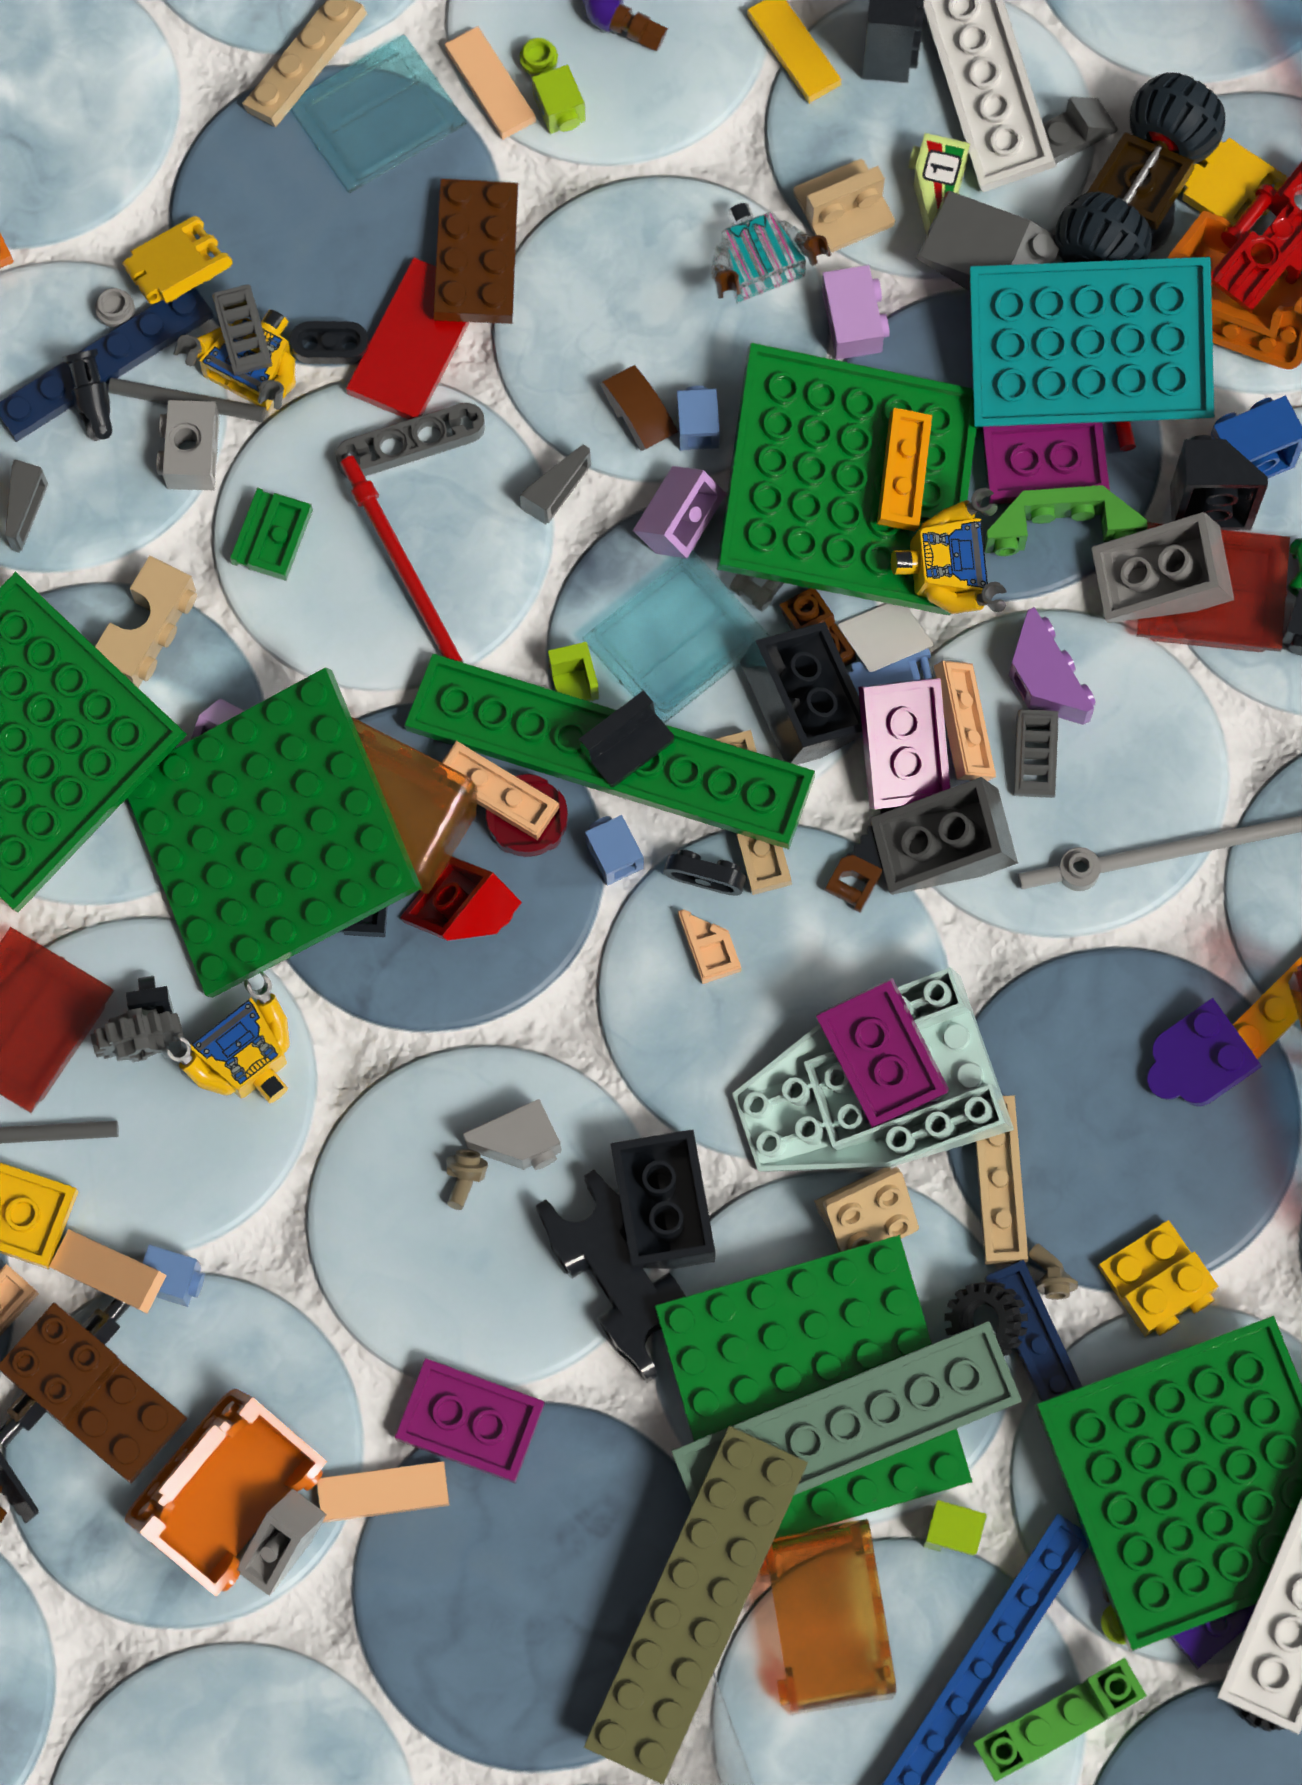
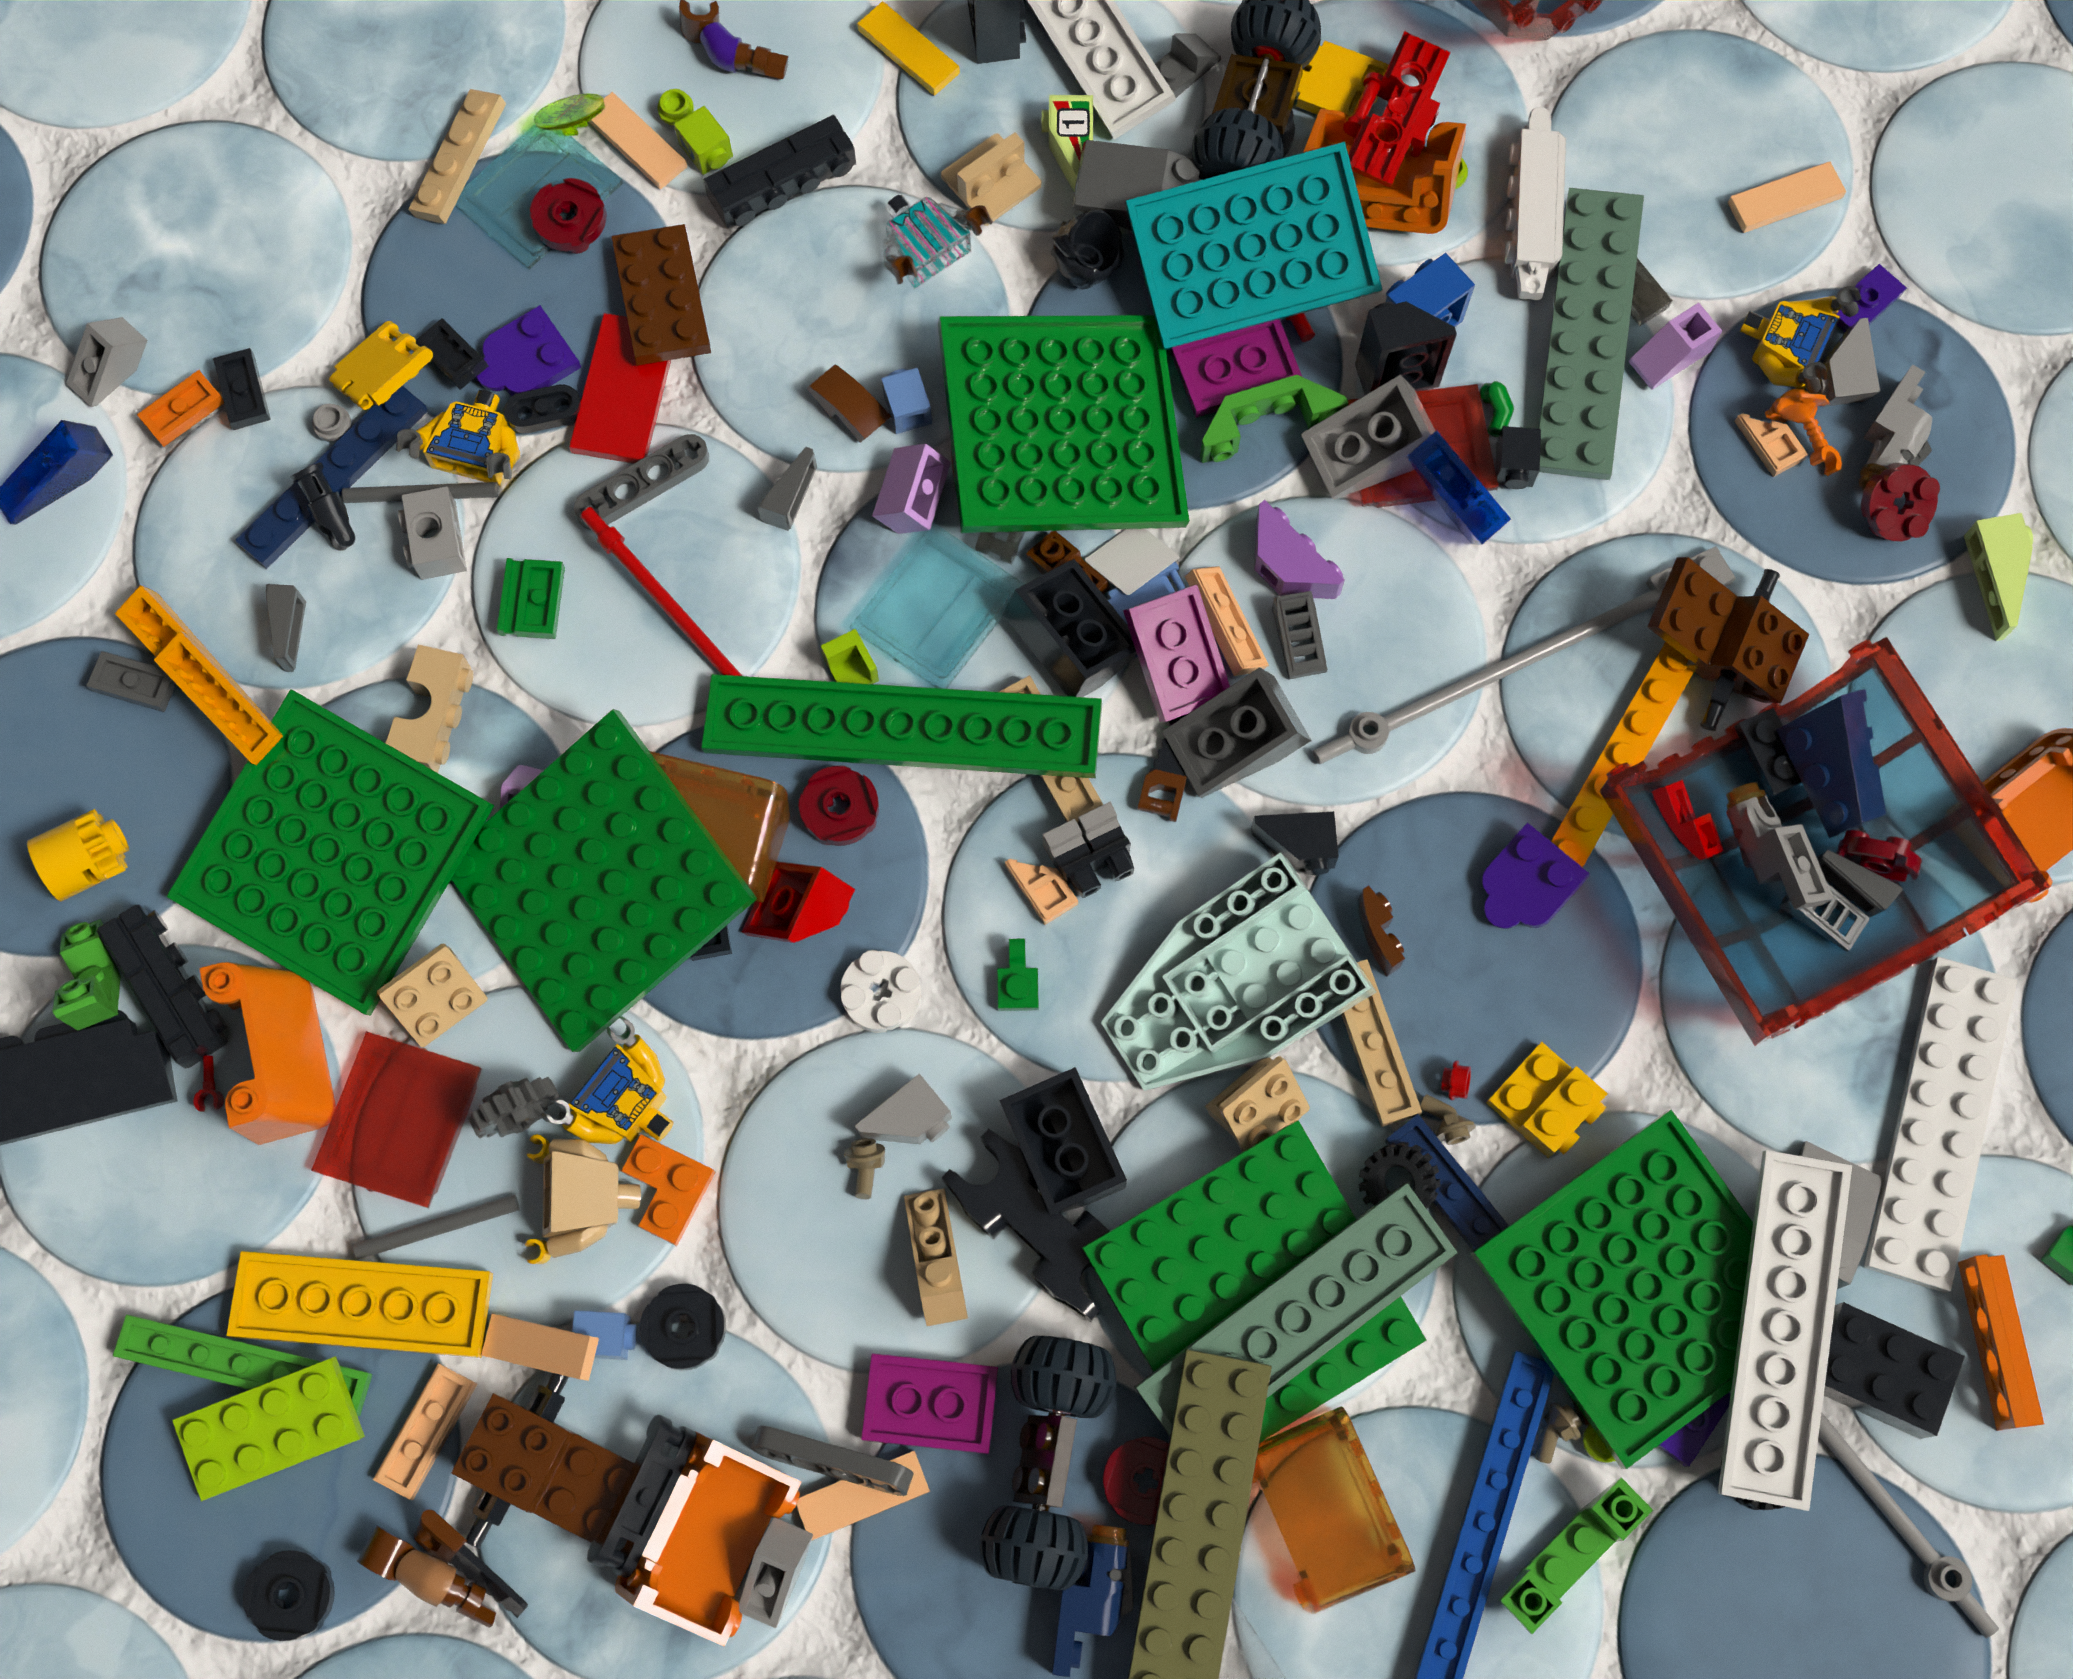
camera: 15 degrees left, 0 degrees up
(33, 252) = (241, 389): none -> black plate
(83, 907) = (432, 995): none -> tan bracket
(150, 997) = (518, 1067): black tile -> none
(172, 1436) = (643, 1497): none -> black plate
(178, 1137) = (578, 1196): none -> tan torso
(235, 305) = (442, 392): dark grey slope -> none
(235, 1268) = (666, 1310): none -> black plate
(251, 263) = (452, 354): none -> black plate
(277, 1146) = (678, 1184): none -> orange plate
(325, 283) = (526, 355): none -> dark purple plate
(361, 1449) = (832, 1460): none -> dark grey beam
(407, 167) = (571, 234): none -> dark red plate
(429, 39) = (569, 113): none -> clear neon green piece
(503, 792) = (812, 789): light nougat tile -> none
(510, 1282) = (935, 1257): none -> tan slope
(522, 1032) = (888, 1012): none -> white plate
(530, 1569) = (1033, 1544): none -> black plate
(585, 1647) = (1099, 1600): none -> dark blue plate
(613, 849) = (929, 817): medium blue brick -> none
(626, 740) = (916, 711): black panel -> none
(629, 150) = (780, 172): none -> black brick
(634, 1540) = (1119, 1473): none -> dark red plate
(659, 1036) = (1017, 984): none -> green plate
(691, 870) = (1005, 819): black plate -> none
(783, 915) = (1089, 846): none -> black hips
(853, 312) = (1025, 271): lavender brick -> none
(882, 1052) = (1236, 949): magenta plate -> none
(904, 469) = (1112, 401): light orange plate -> none
(923, 304) = (1088, 248): none -> black hair
(950, 559) = (1176, 474): torso -> none
(955, 1528) = (1423, 1391): lime panel -> none
(980, 959) = (1303, 838): none -> black slope
(1034, 1059) = (1375, 918): none -> reddish brown slope
(1072, 1237) = (1456, 1081): none -> red plate
(1083, 1594) = (1561, 1423): none -> dark tan plate
(1233, 642) = (1457, 490): none -> clear blue slope

